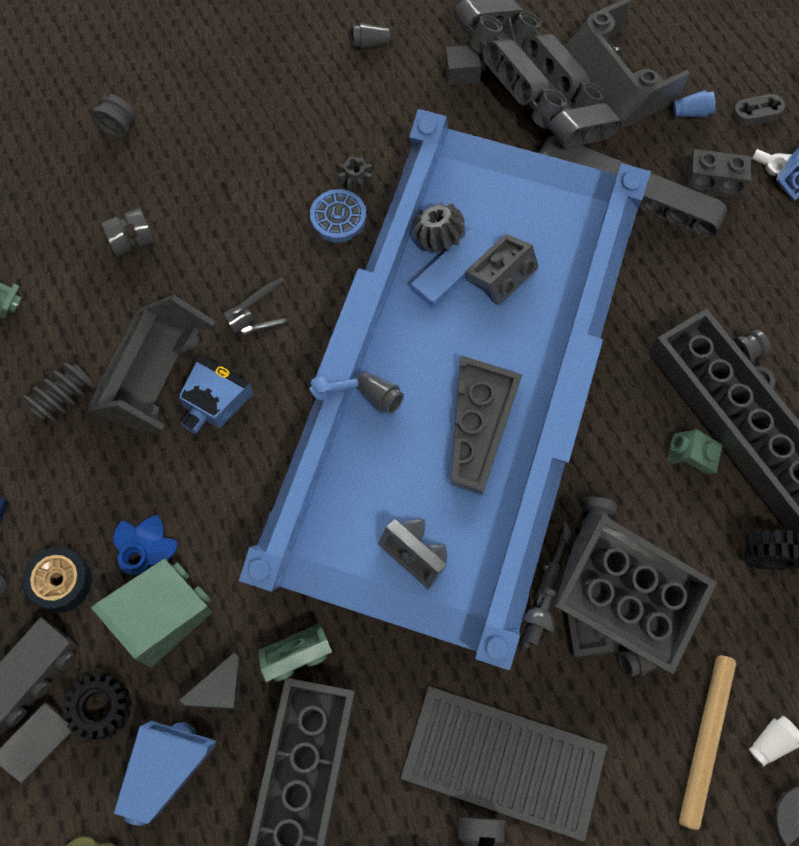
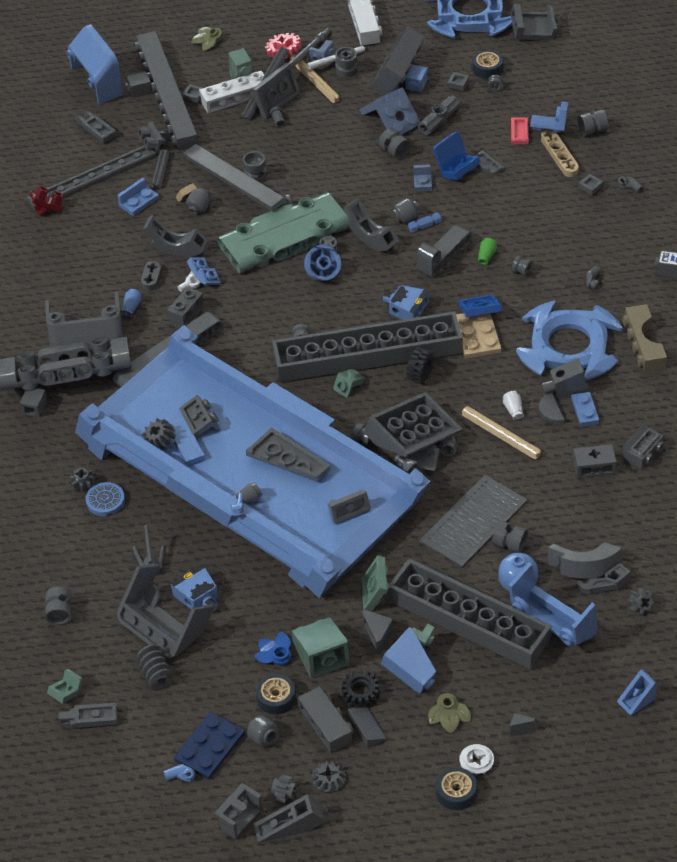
camera: 65 degrees left, 20 degrees down
(218, 769) = (425, 637): none -> sand green bracket

